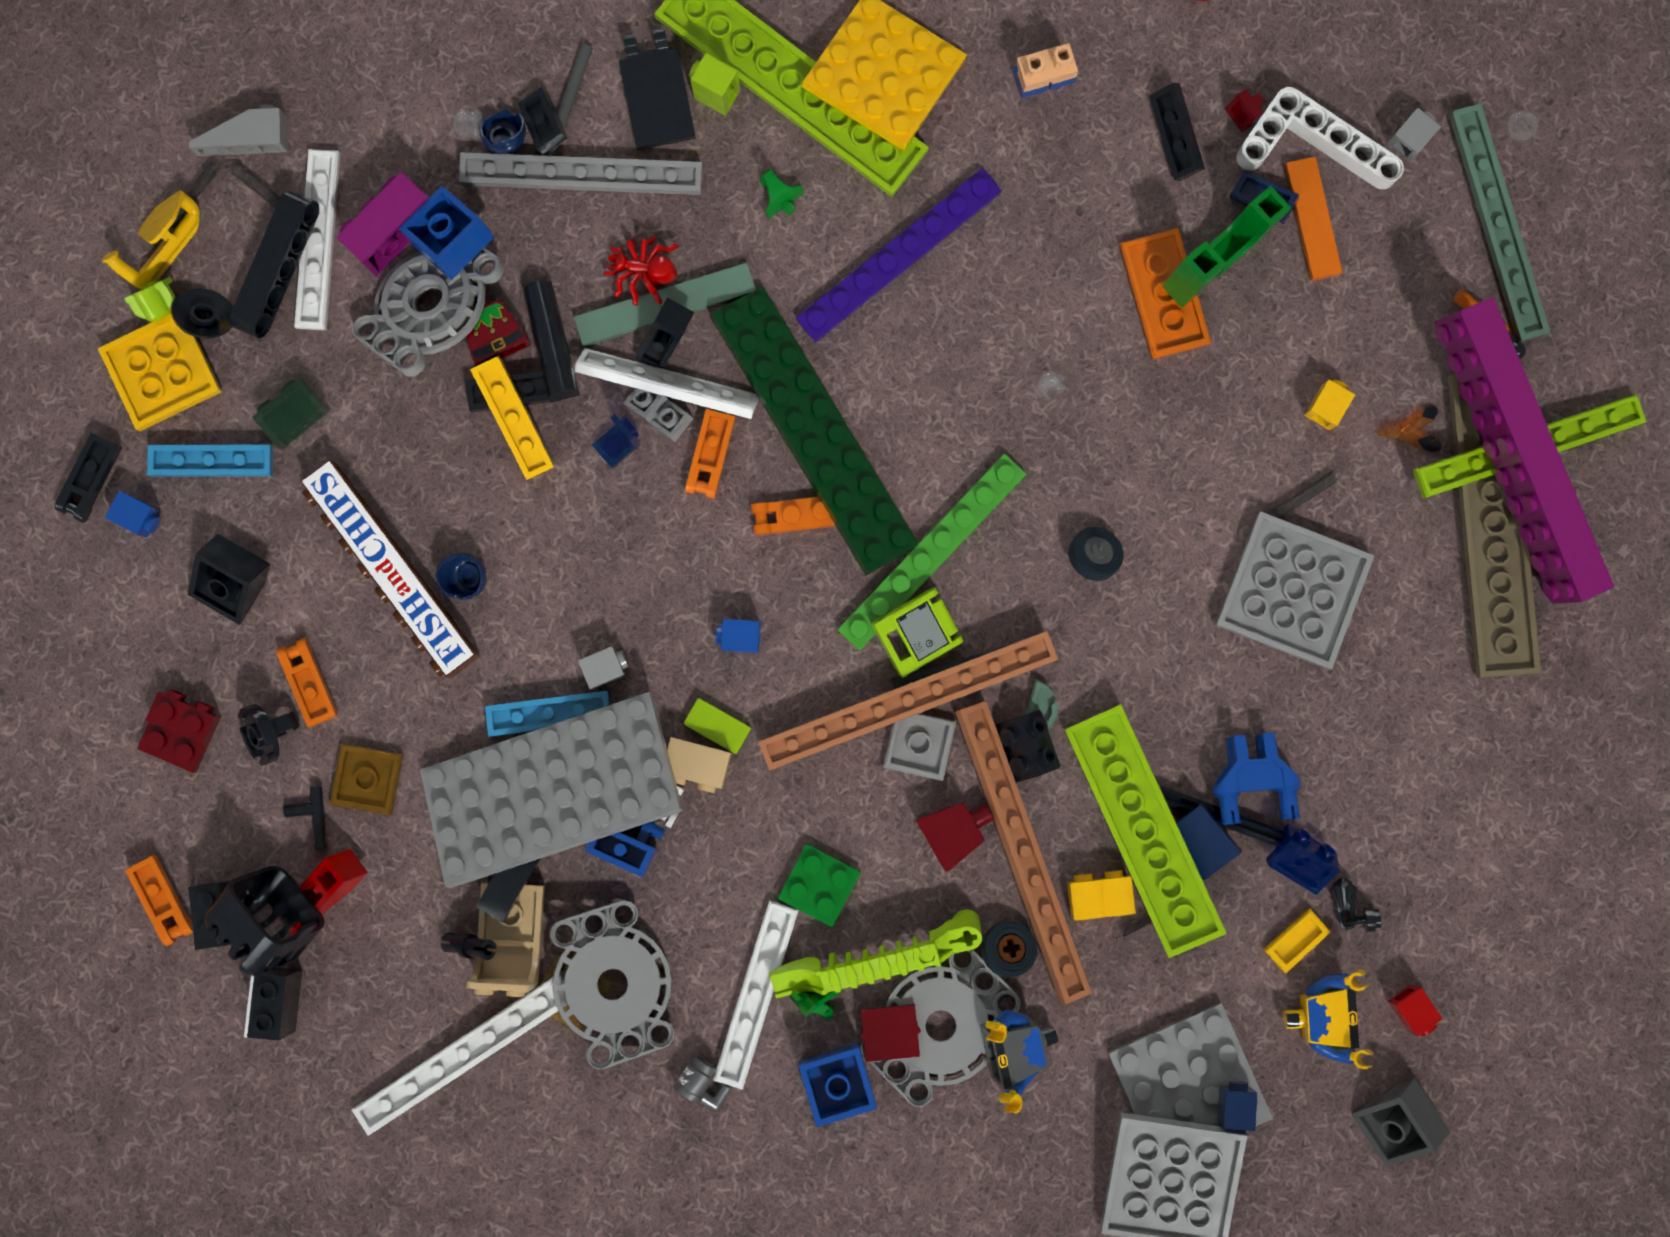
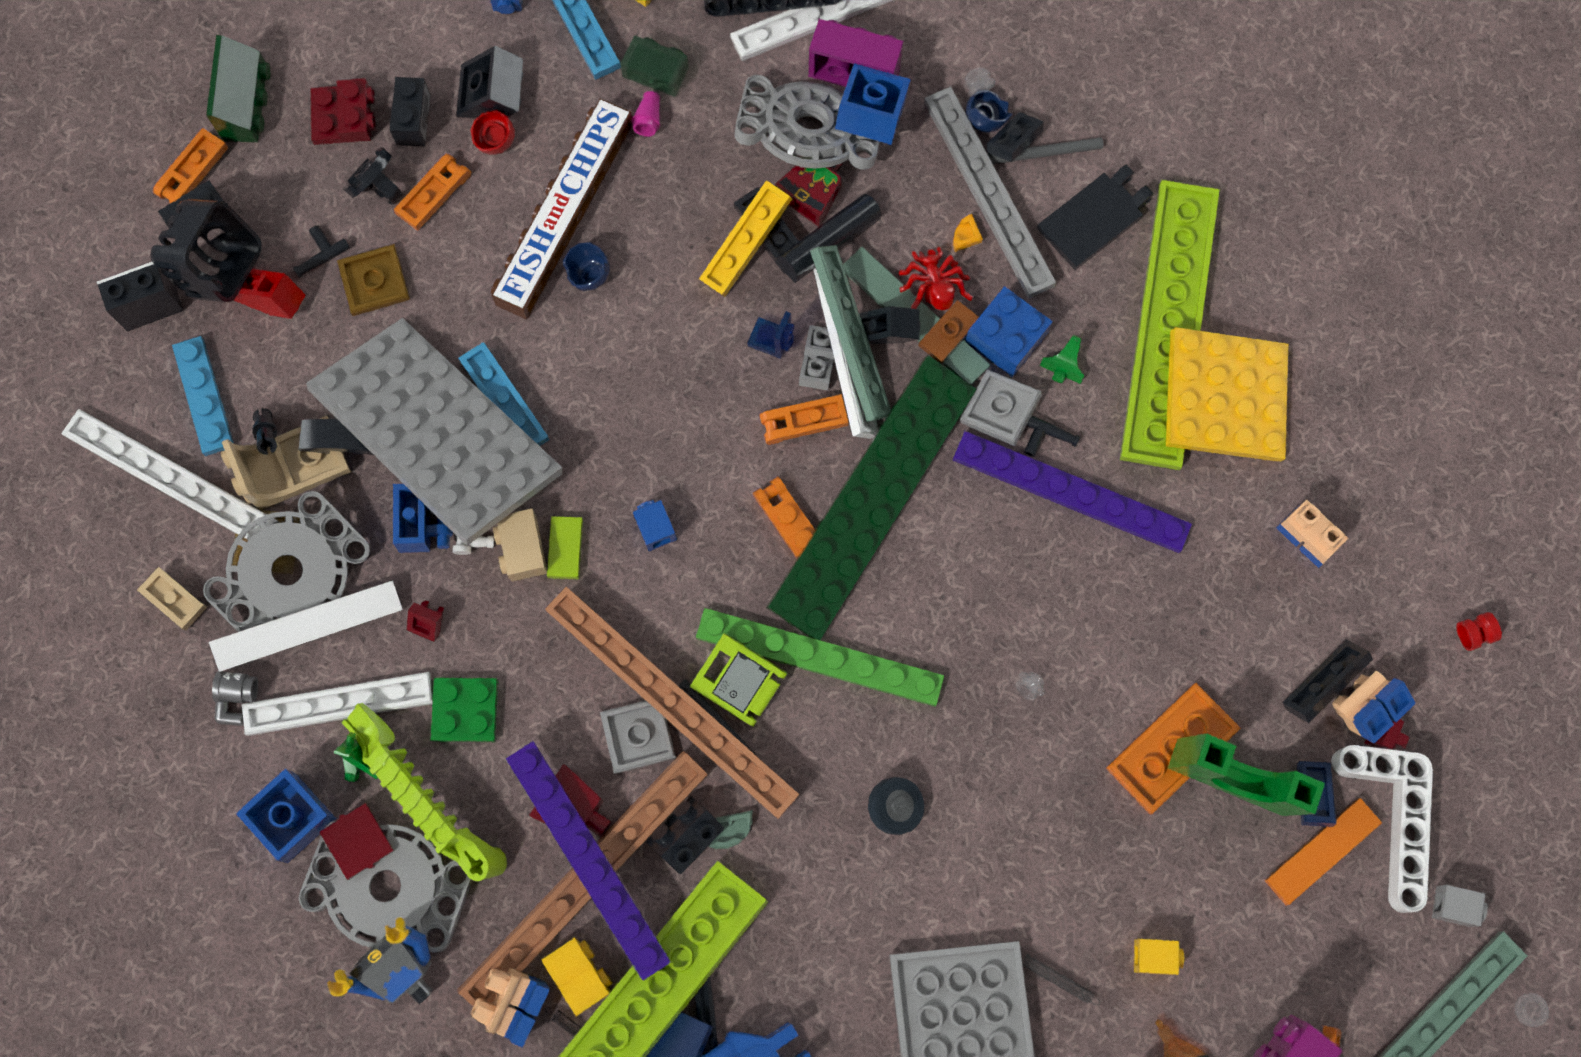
camera: 65 degrees right, 10 degrees down
(106, 818) = (237, 91): none -> slope
(214, 665) = (410, 111): none -> black brick
(273, 594) = (493, 128): none -> red hair
(338, 446) = (647, 116): none -> dark pink cone
(398, 988) = (202, 395): none -> dark azure plate
(582, 1100) = (172, 598): none -> tan plate
(603, 667) = (567, 423): light grey brick -> none
(610, 216) = (966, 234): none -> light orange tile
(654, 369) = (851, 333): none -> sand green tile
(672, 990) = (305, 626): none -> white tile
(698, 282) = (948, 332): none -> dark orange plate
(714, 83) = (1129, 256): lime brick -> none
(722, 882) = (424, 621): none -> dark red tile
(726, 229) = (1008, 331): none -> blue brick
(790, 274) = (1001, 407): none -> light grey tile
(827, 248) = (1040, 429): none -> black piece
(1001, 962) = (469, 911): black bush -> none
(1011, 839) = (588, 861): none -> dark purple plate
(1101, 961) = (514, 1006): none -> light nougat hips
(1219, 106) = (1374, 705): none -> blue hips

